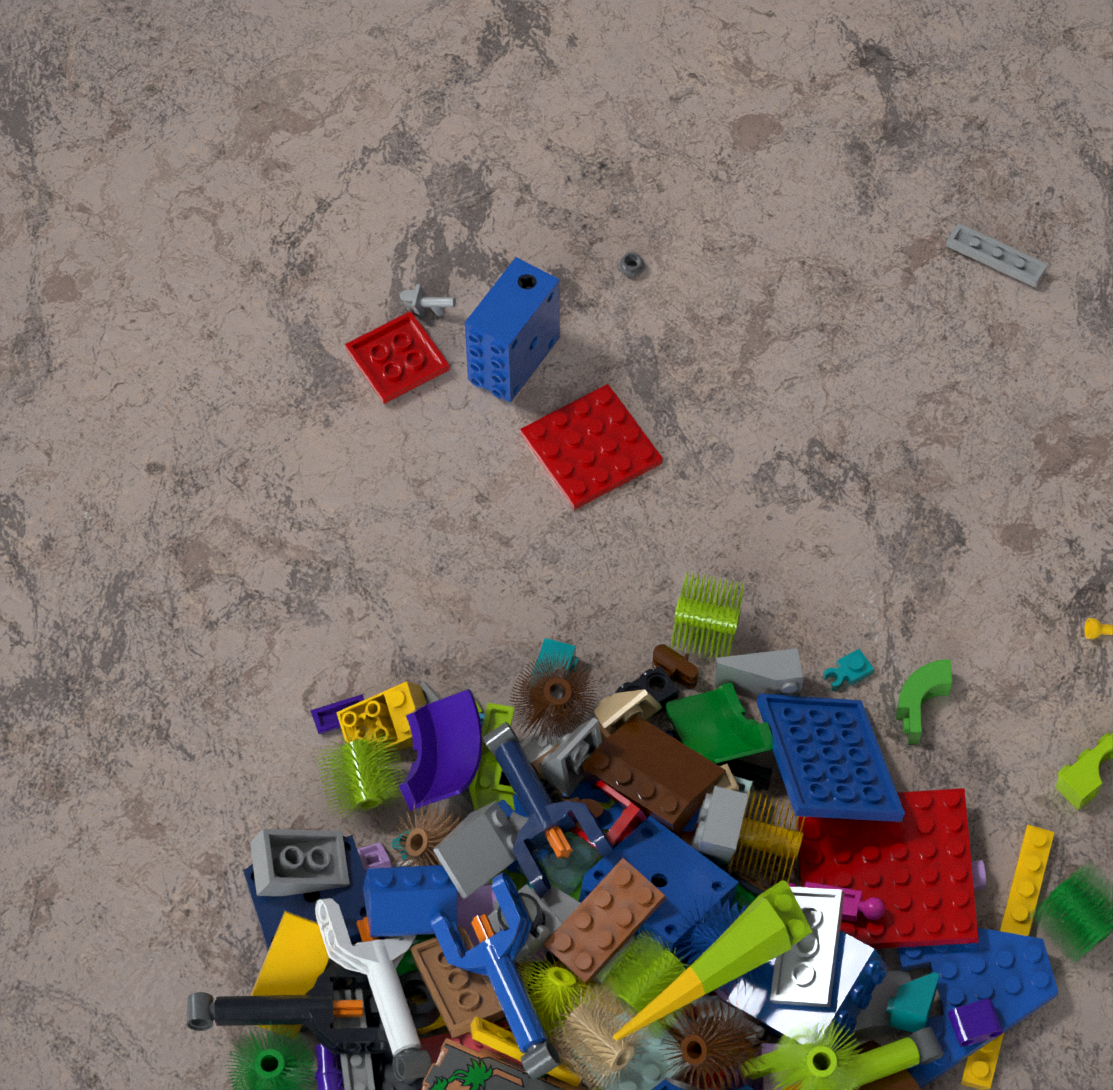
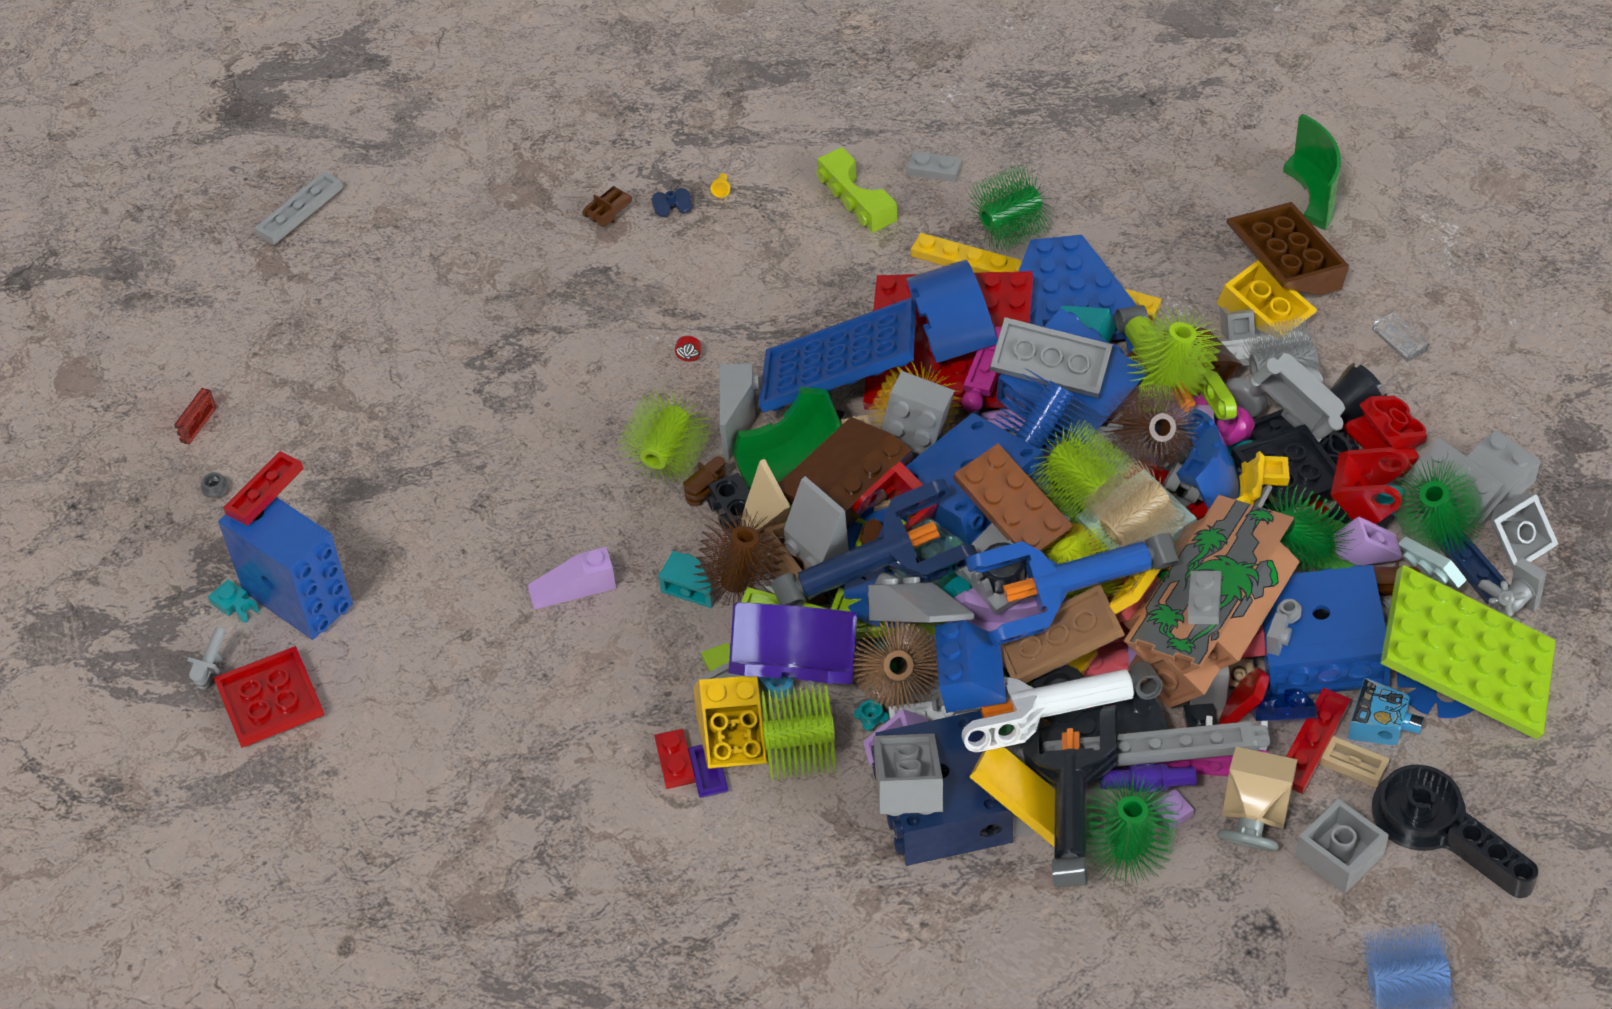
camera: 80 degrees left, 10 degrees down
(352, 684) = (674, 758): none -> red plate
(545, 573) = (576, 578): none -> lavender slope
(548, 280) = (263, 488): none -> red plate
(591, 446) = (429, 536): red plate -> none
(709, 230) = (195, 416): none -> clear red tile
(756, 936) = (1052, 366): lime plate -> none
(850, 628) = (688, 348): none -> tile
(851, 667) = (728, 352): teal plate -> none
(897, 852) = (953, 310): none -> blue panel
(923, 684) = (773, 311): bright green arch -> none
(975, 1022) = (1110, 285): dark purple piece -> none
(1043, 526) = (607, 206): none -> reddish brown arm
(1069, 592) = (662, 202): none -> dark blue piece

